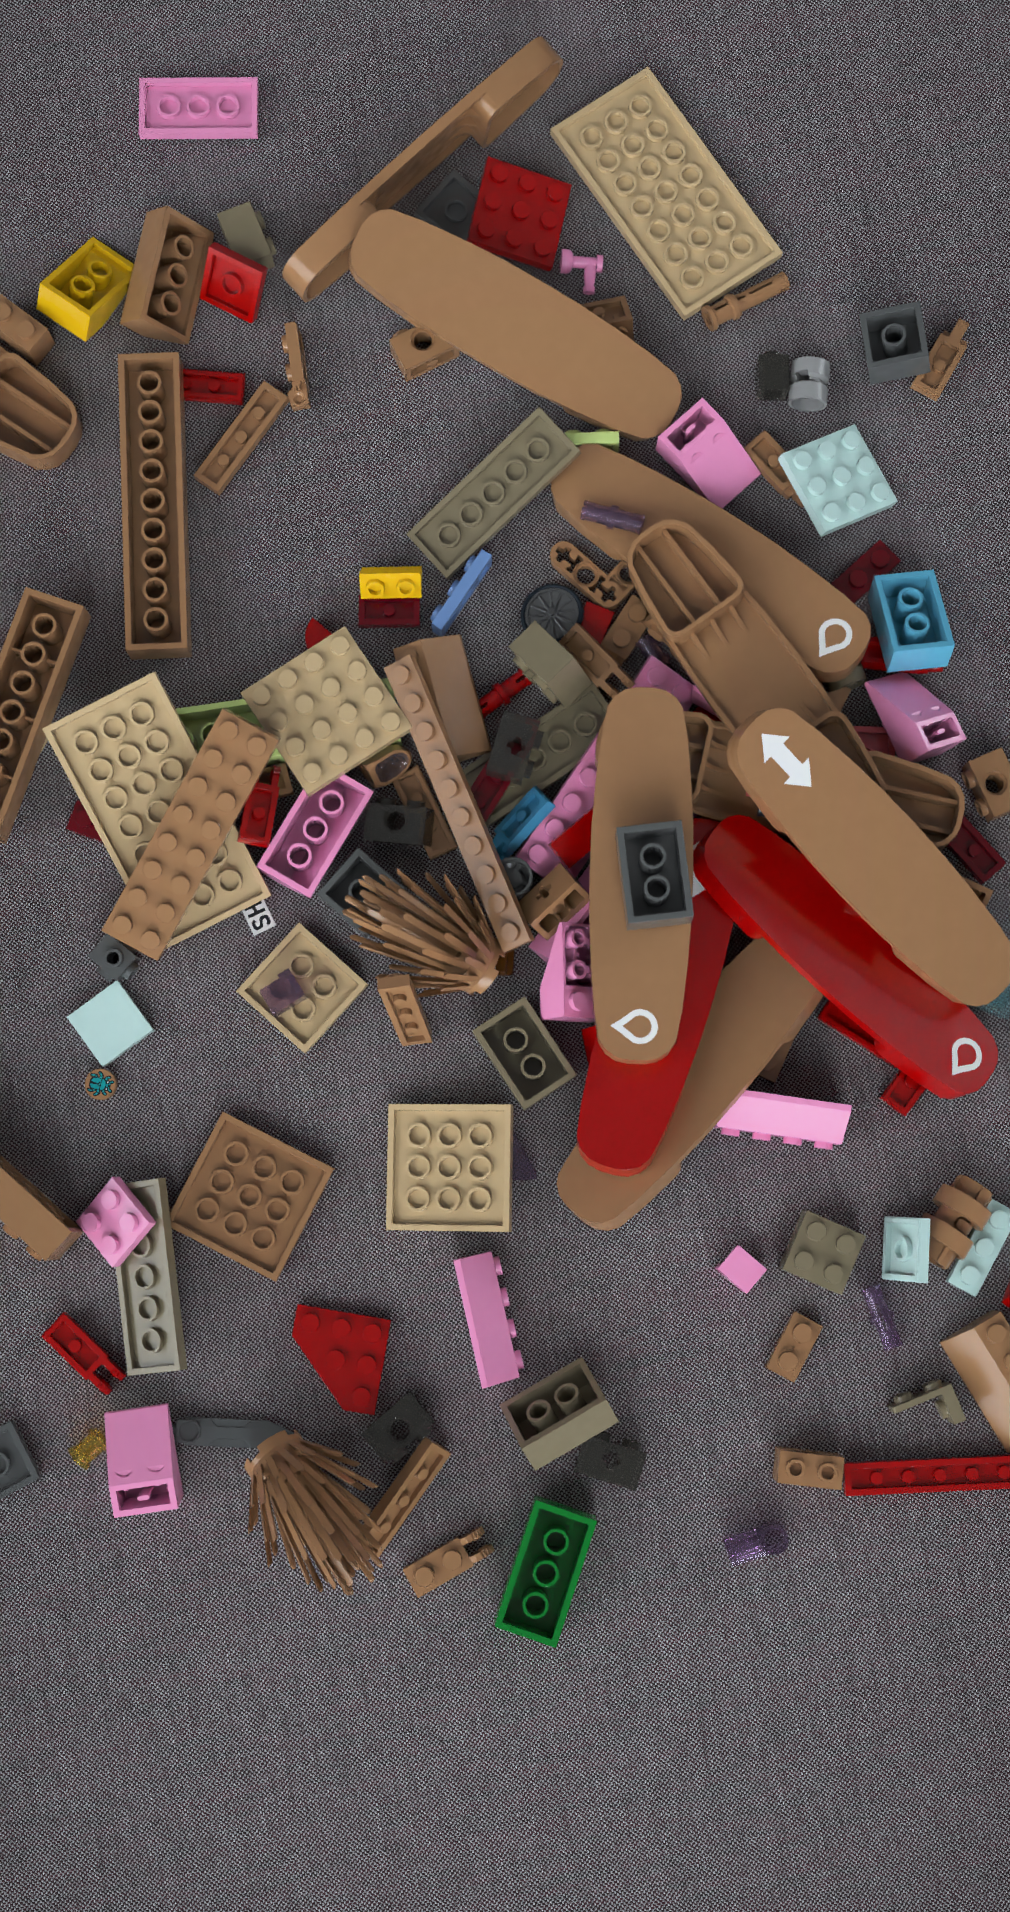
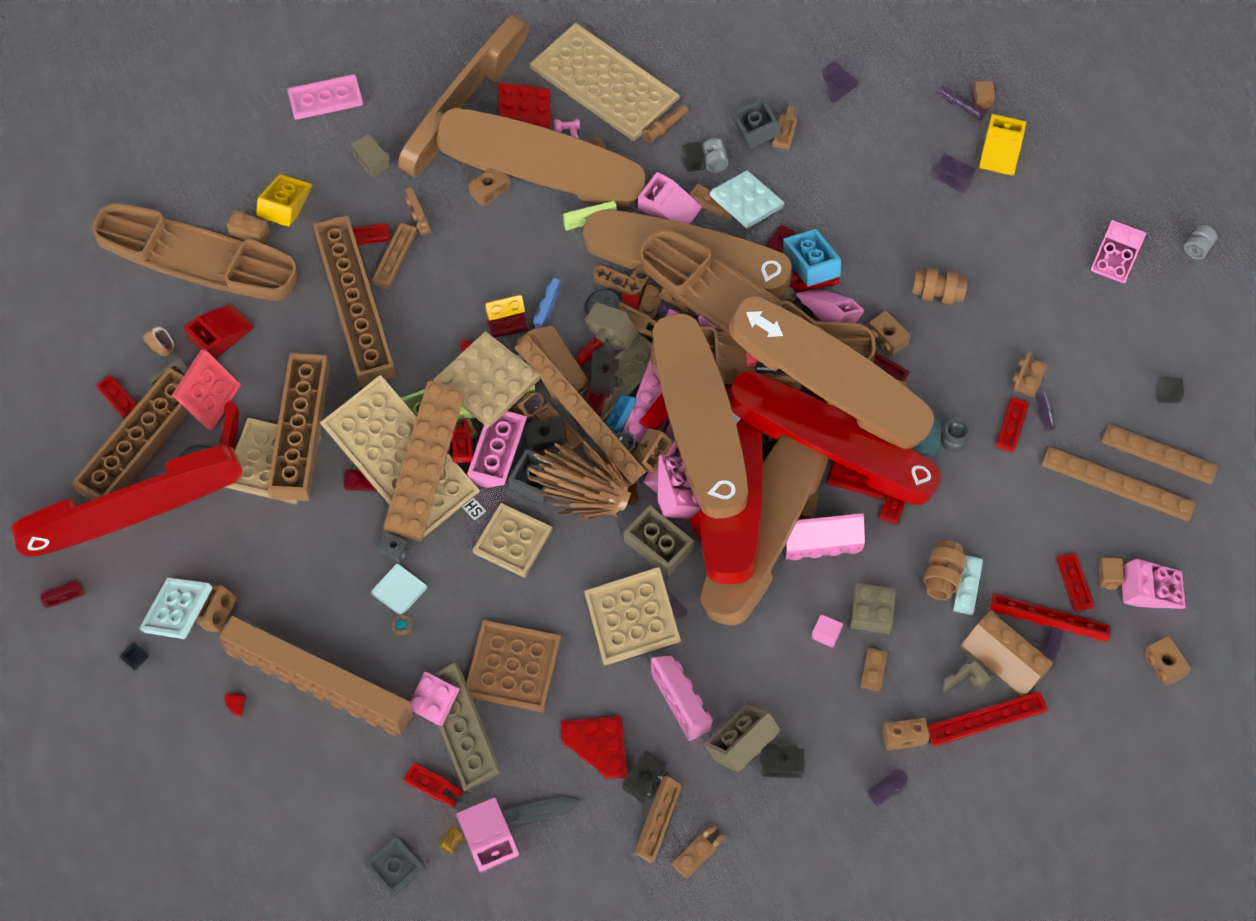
camera: 15 degrees left, 20 degrees down
(167, 276) = (328, 183): medium nougat slope -> none
(233, 282) = (369, 176): red plate -> none
(283, 993) = (503, 541): clear purple panel -> none
(319, 1507) = (601, 826): medium nougat plant -> none
(404, 1009) = (580, 526): medium nougat plate -> none
(493, 493) = (551, 248): dark tan plate -> none
(545, 1571) = (762, 836): green brick -> none
(612, 517) = (624, 241): clear purple pin -> none
(654, 875) = (707, 404): dark grey brick -> none
(890, 1337) = (921, 636): clear purple pin -> none
(906, 1249) = (922, 591): light aqua tile -> none

